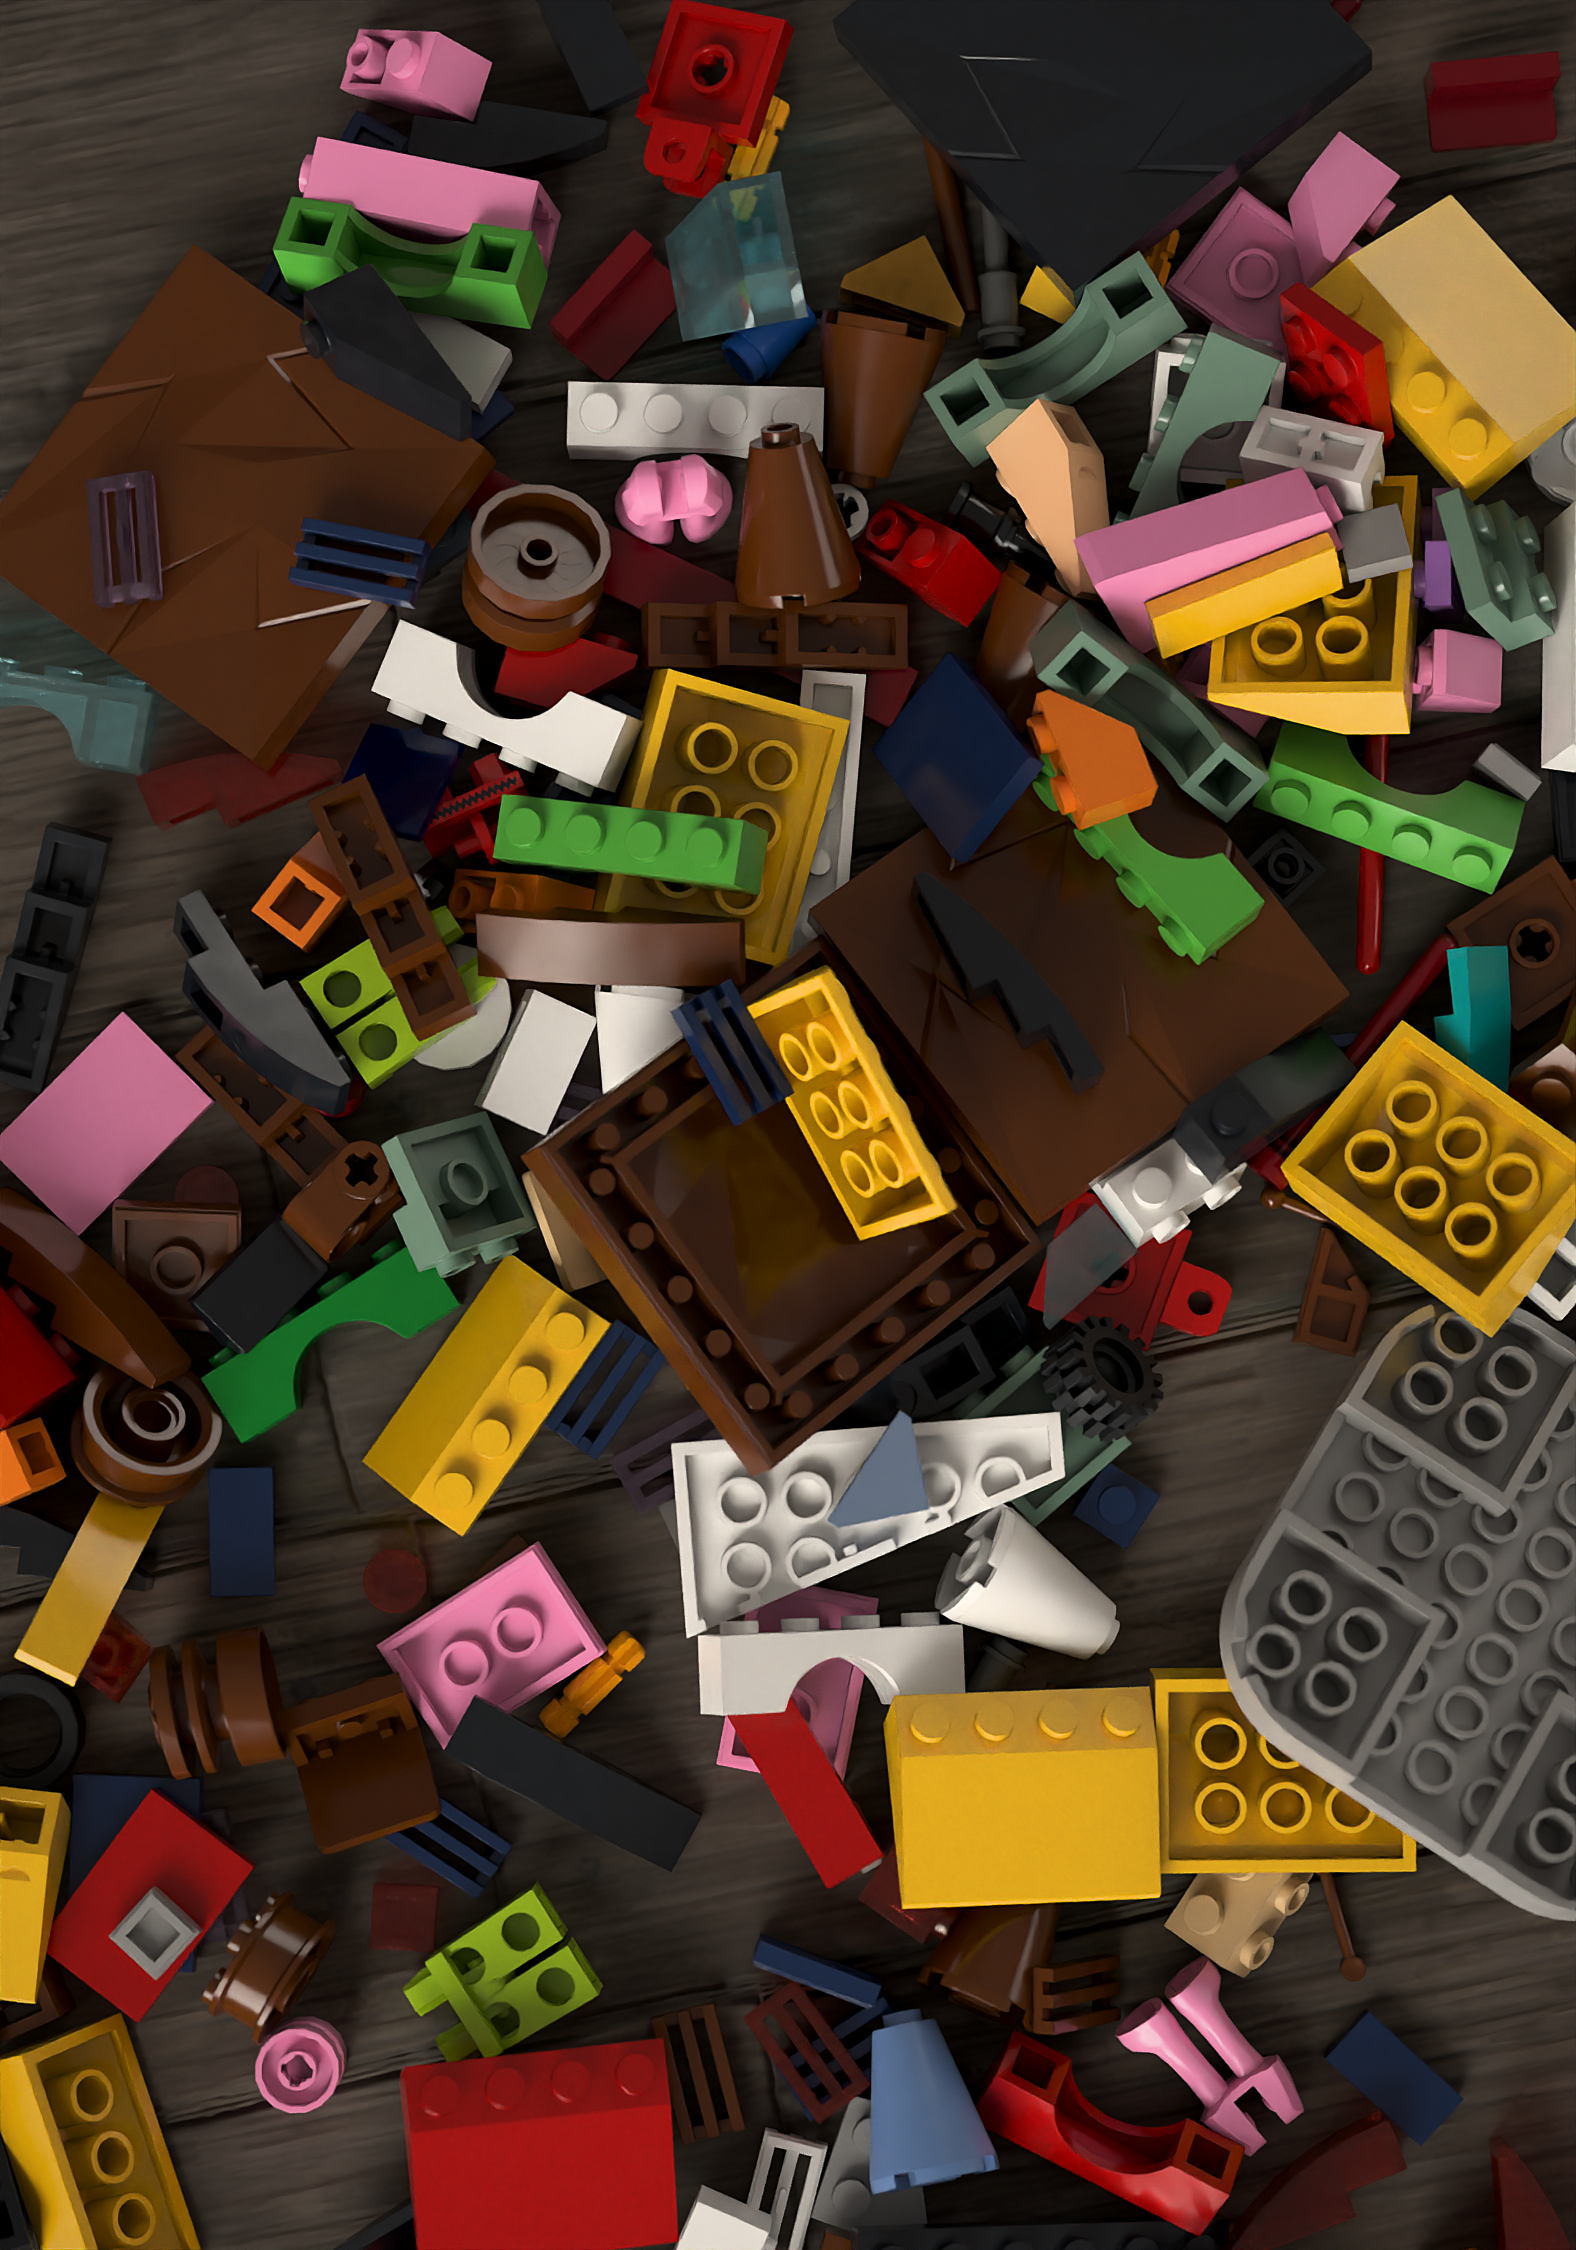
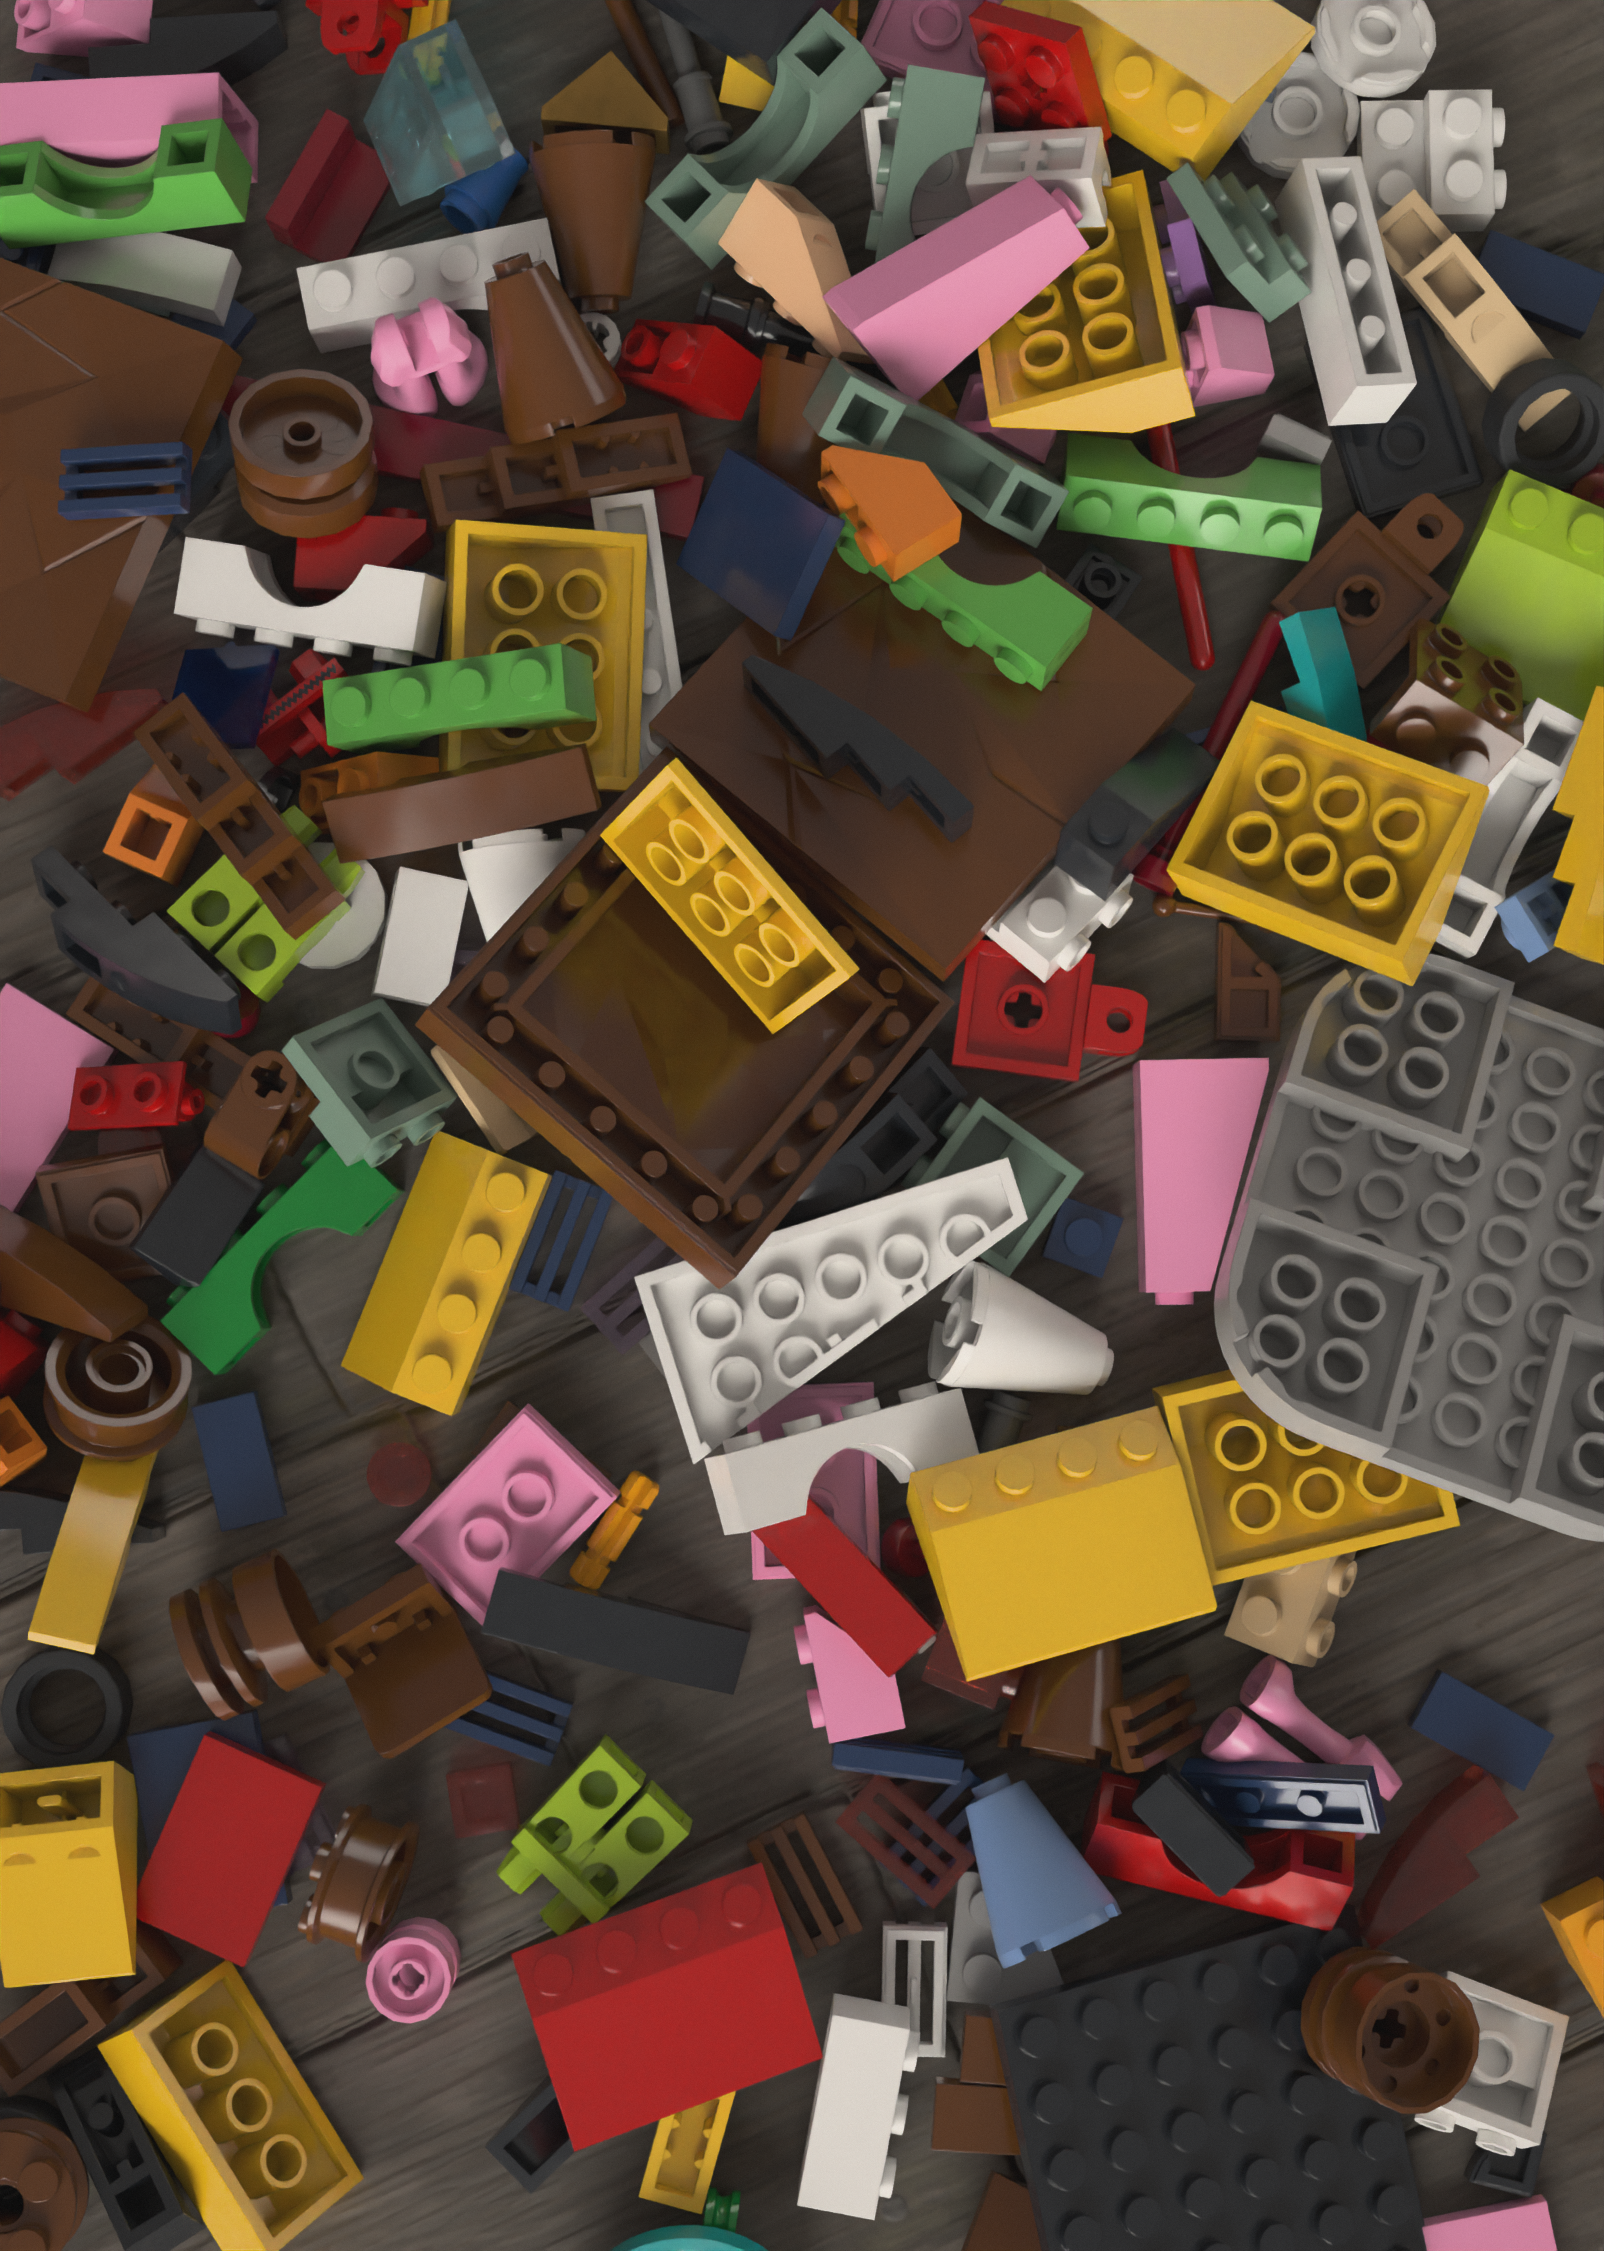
camera: 15 degrees left, 0 degrees up
(117, 1657) = (136, 1613): clear red slope -> none
(155, 1932) = (239, 1875): light grey tile -> none
(222, 1153) = (133, 1096): none -> red hinge
(383, 351) = (102, 270): black slope -> none
(750, 1040) = (610, 868): dark blue tile -> none
(788, 1893) = (852, 1691): none -> bright pink slope
(869, 1769) = (902, 1550): none -> dark red piece
(887, 1482) = (855, 1262): sand blue slope -> none
(1081, 1262) = (994, 1008): clear light blue tile -> none
(1087, 2102) = (1192, 1828): none -> black slope
(1102, 1378) = (1041, 1116): black tyre -> none
(1183, 2092) = (1290, 1794): none -> dark blue tile
(1237, 1453) = (1188, 1165): none -> bright pink slope
(1244, 595) = (1003, 314): yellow tile -> none
(1351, 1966) = (1414, 1630): reddish brown hinge -> none
(1374, 543) = (1118, 238): light grey tile -> none

